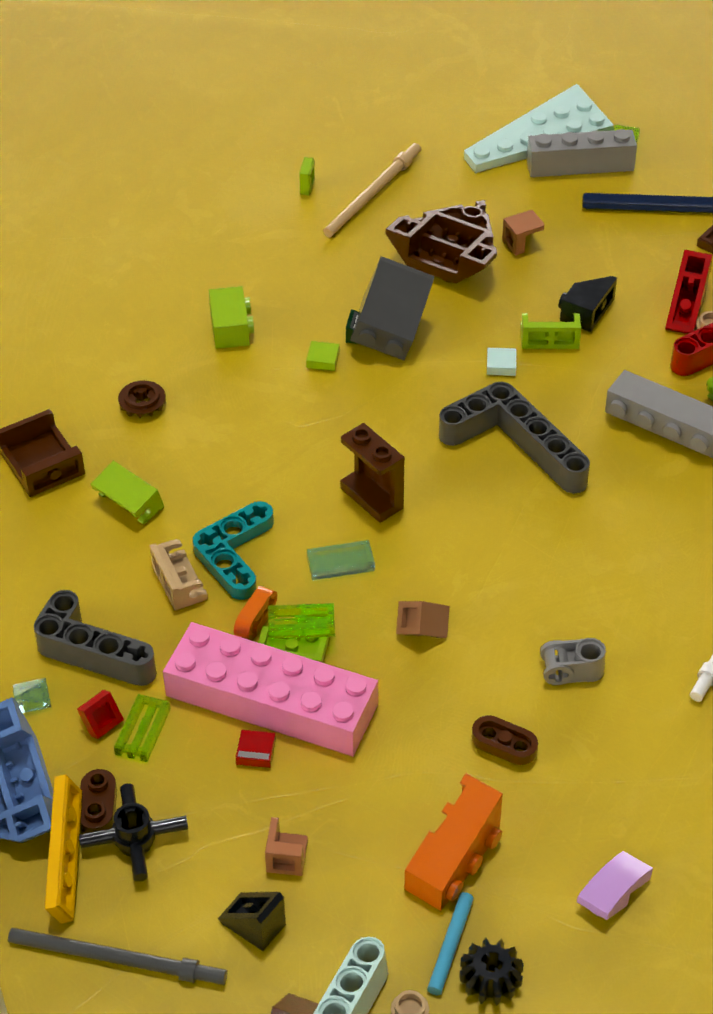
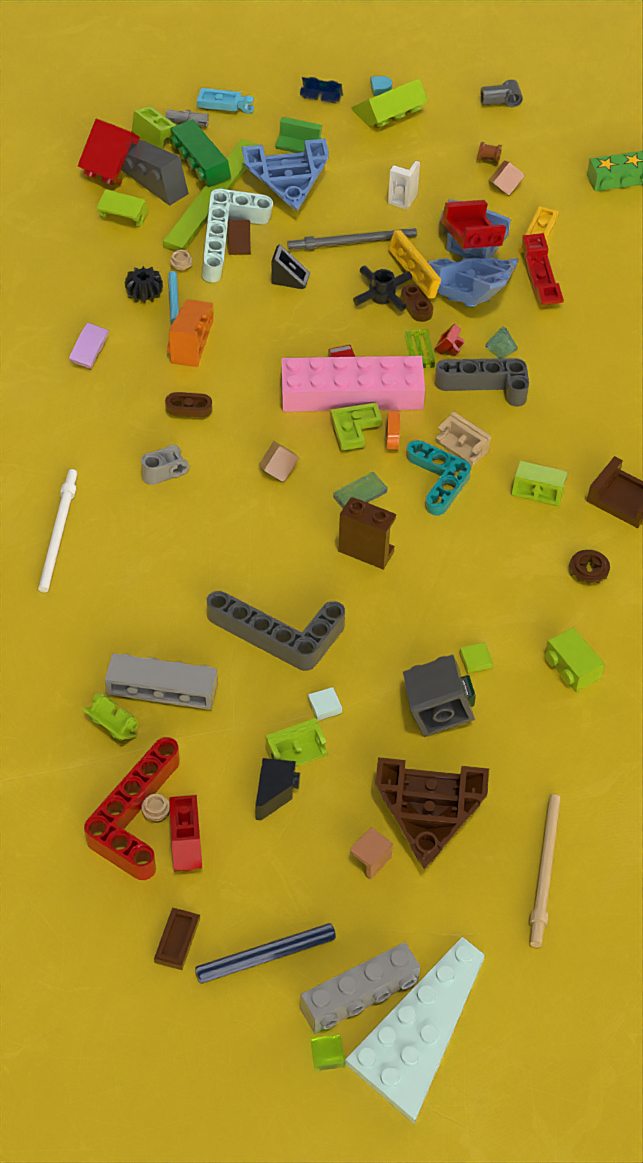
camera: 155 degrees right, 5 degrees up
(285, 851) = (290, 307): nougat panel -> none
(301, 625) = (359, 427): clear neon green tile -> none
(307, 176) = (615, 852): lime tile -> none

